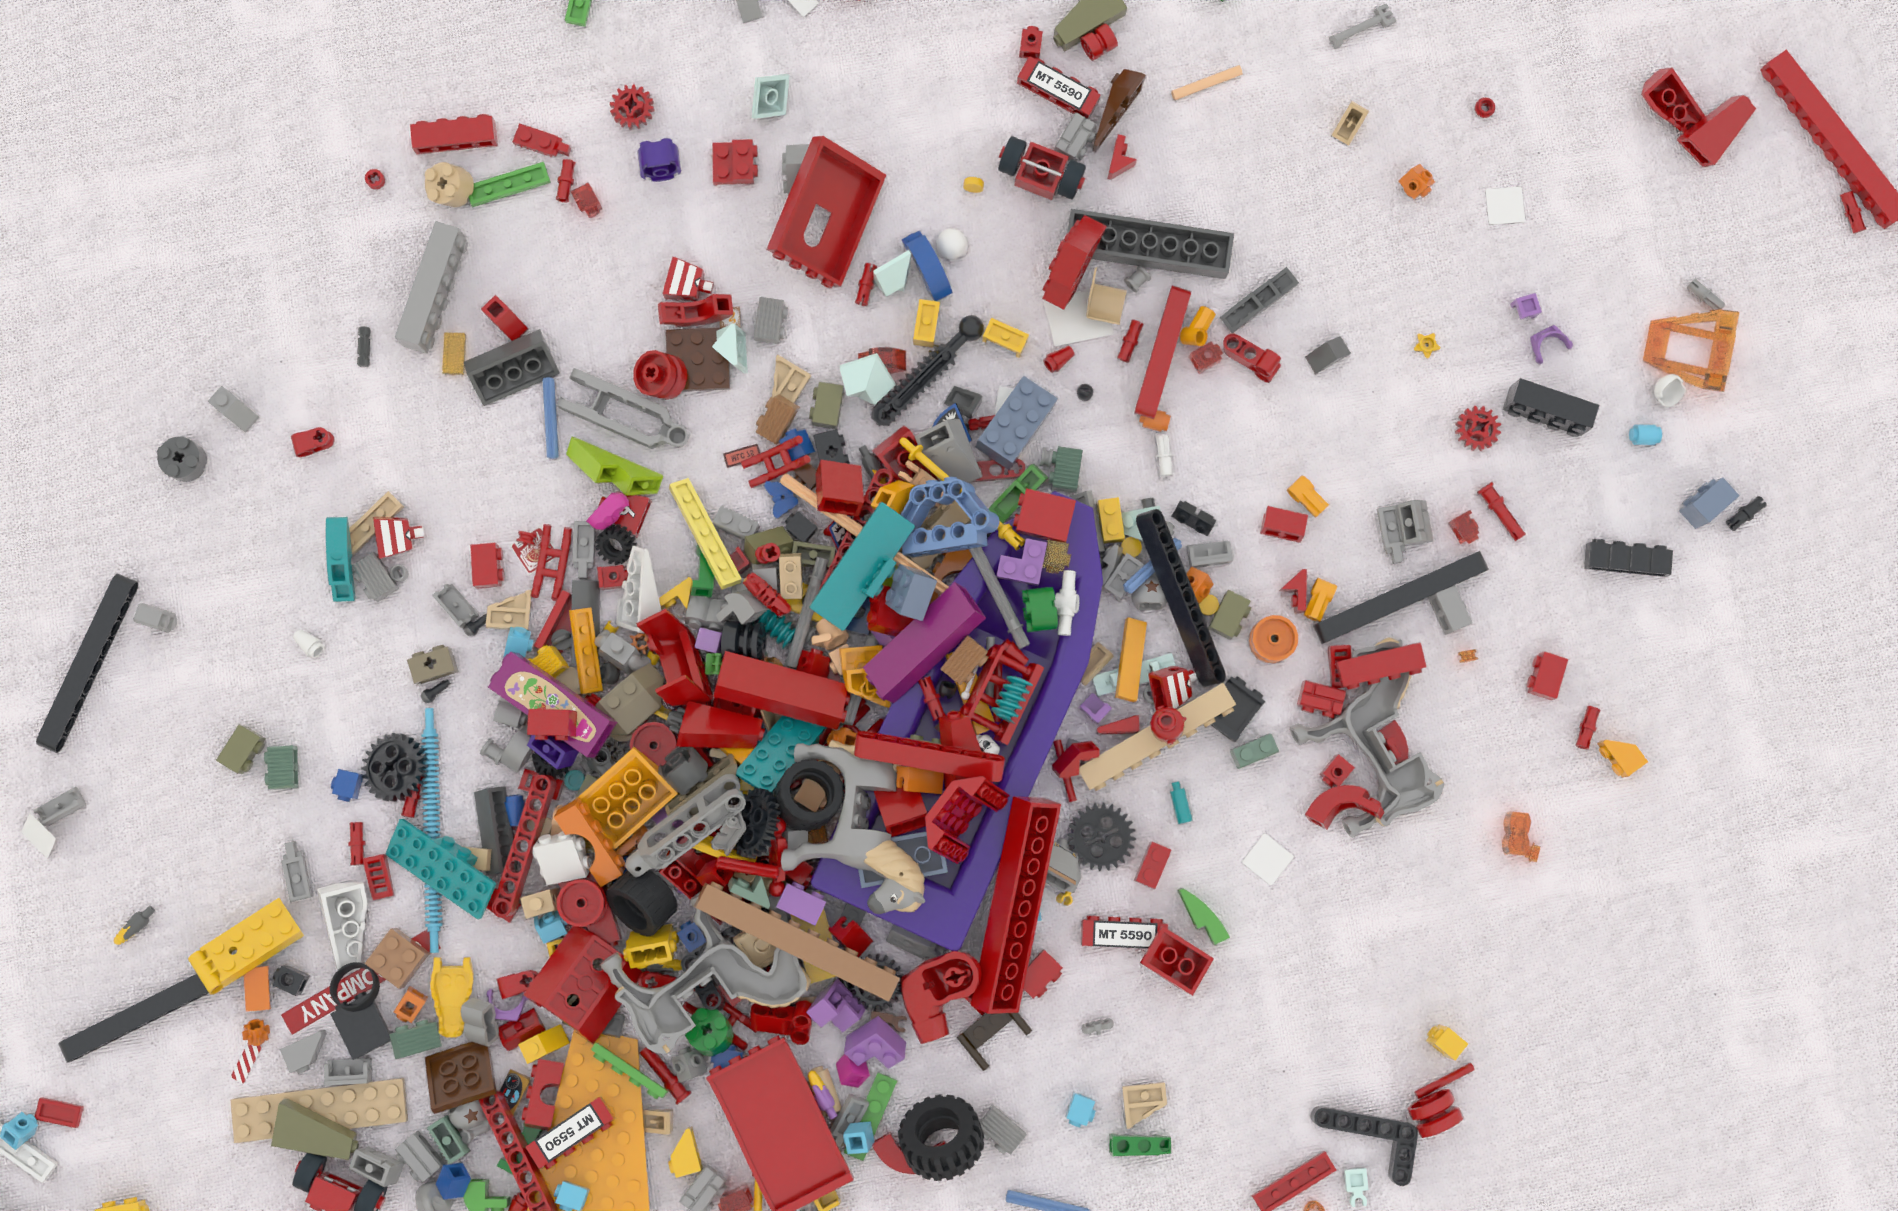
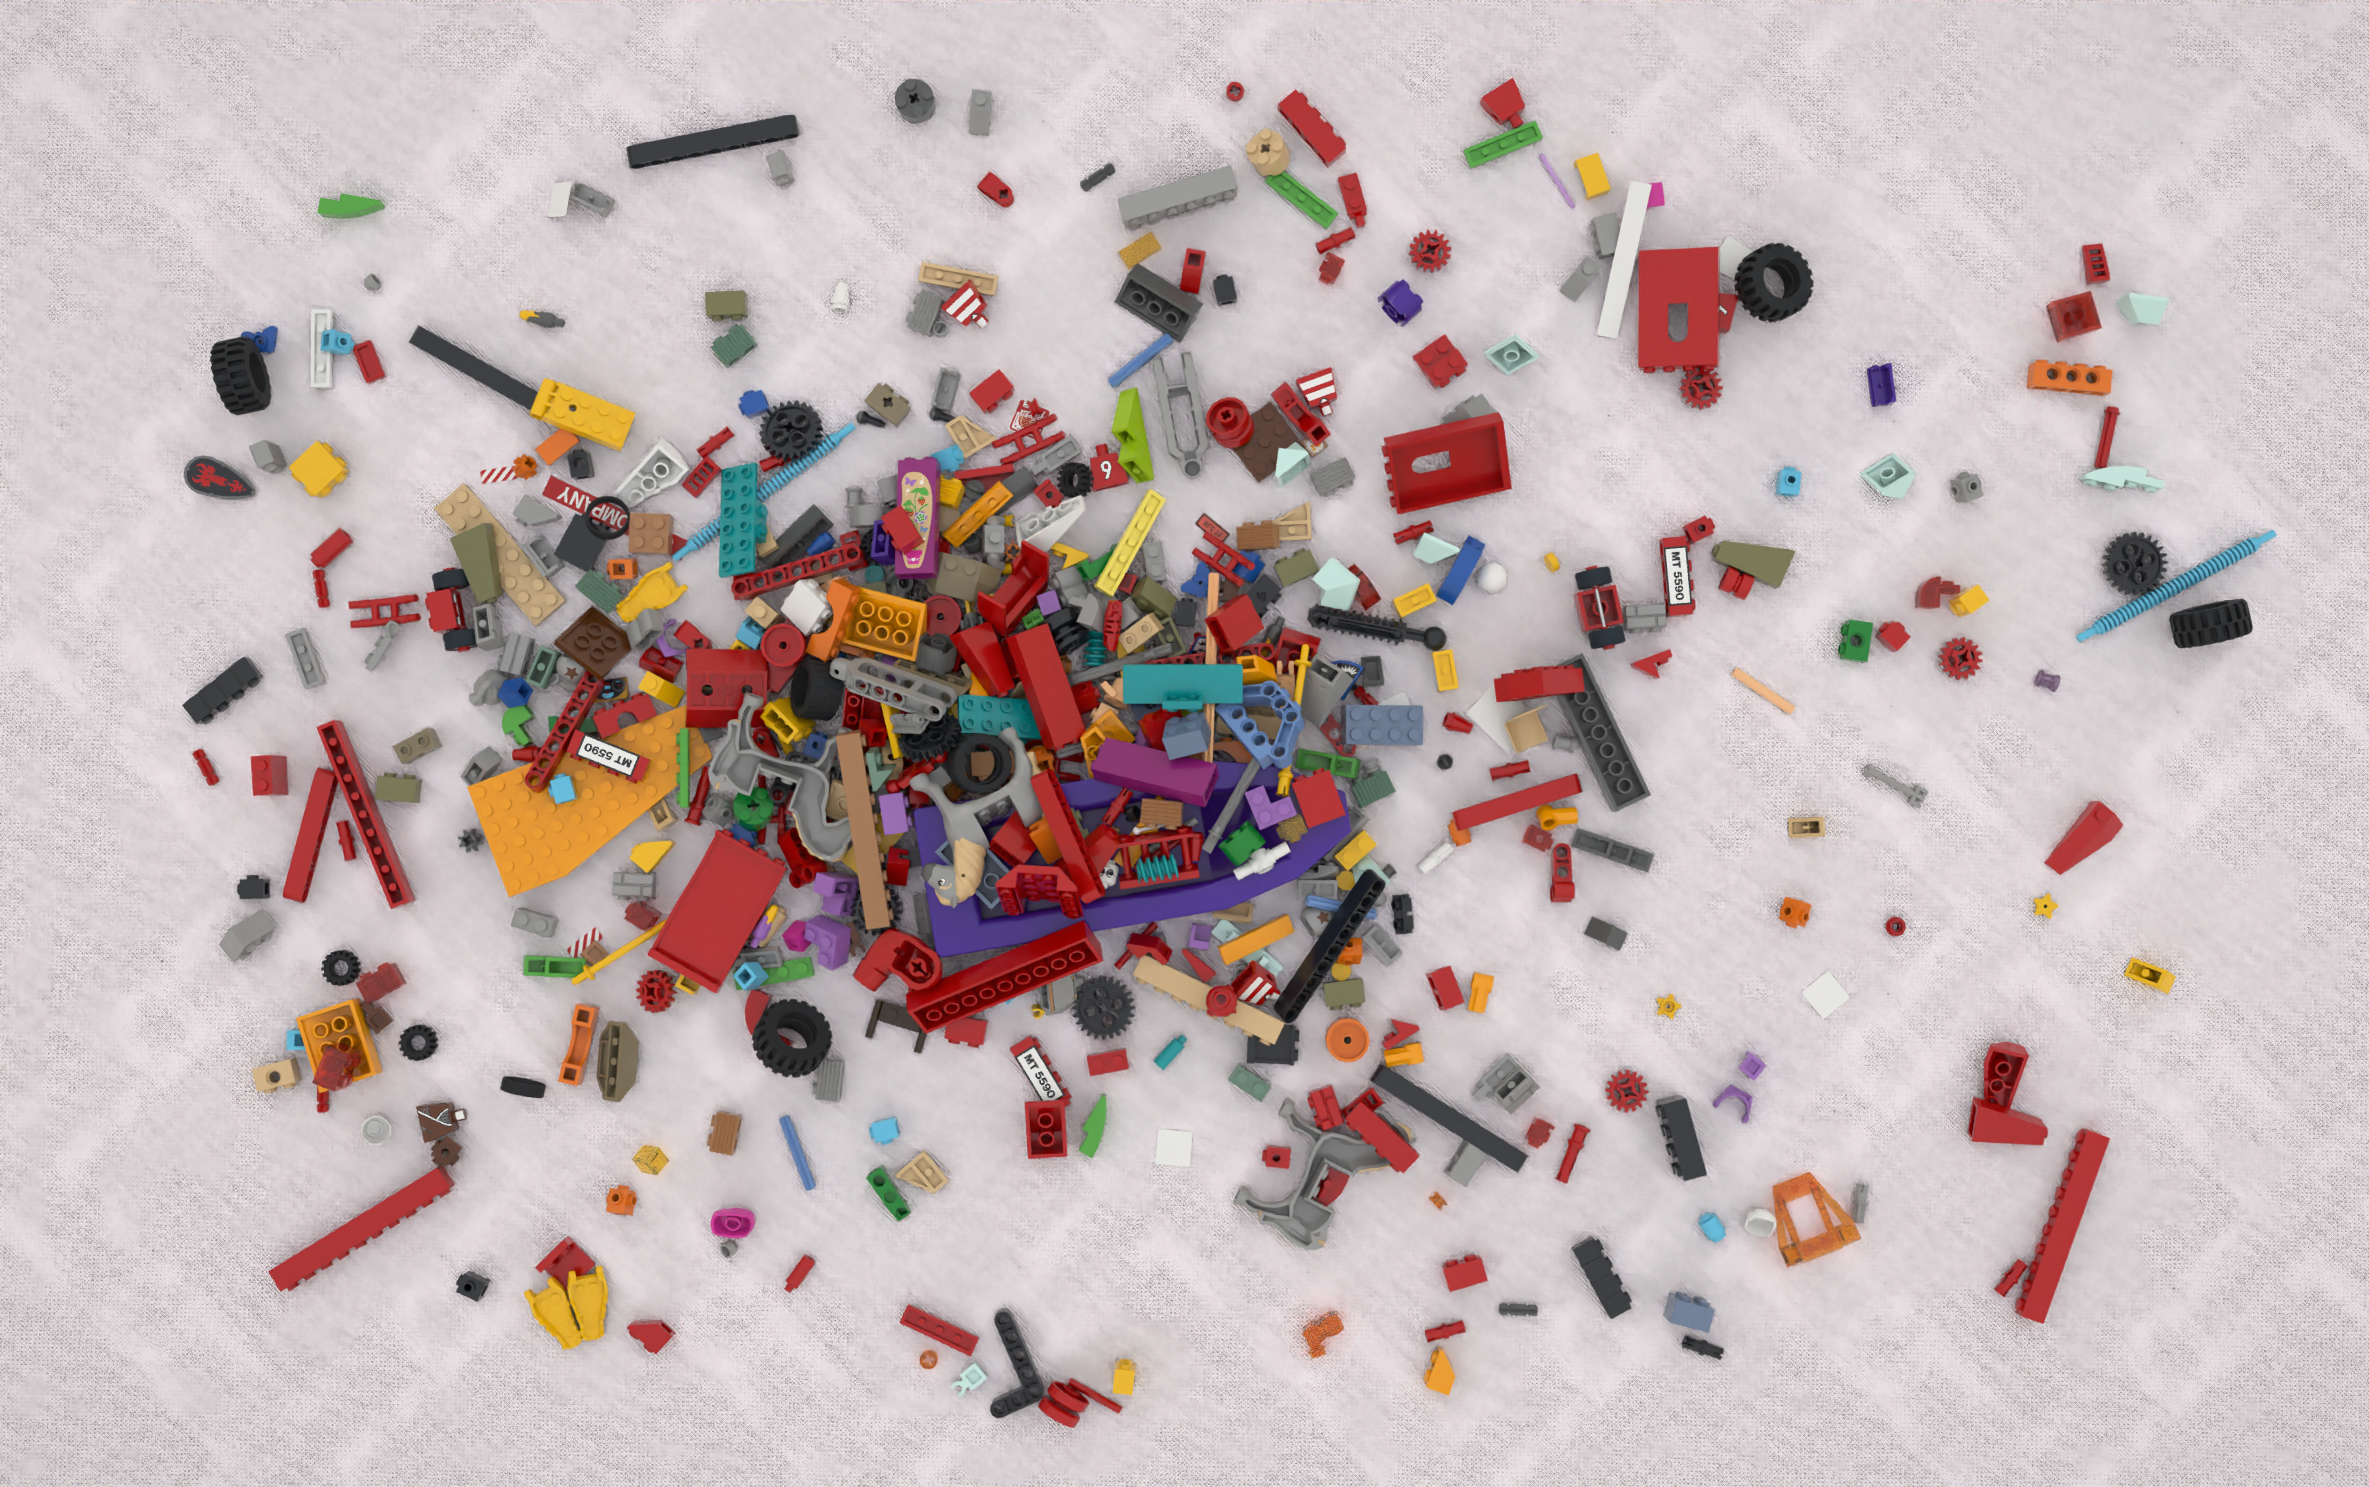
camera: 60 degrees right, 5 degrees up
(296, 873) = (662, 412): light grey hinge -> none
(339, 559) = (920, 276): teal slope -> none
(541, 303) = (1224, 290): none -> black brick
(608, 511) = (1095, 457): dark pink piece -> none
(748, 867) = (893, 754): red axle -> none
(762, 556) = (1139, 602): red bush -> none
(1097, 1026) = (956, 1101): light grey piece -> none
(1122, 94) = (1709, 629): reddish brown wedge -> none
(1340, 798) = (1249, 1168): red arch -> none
(1609, 651) = (1518, 1309): none -> dark grey axle

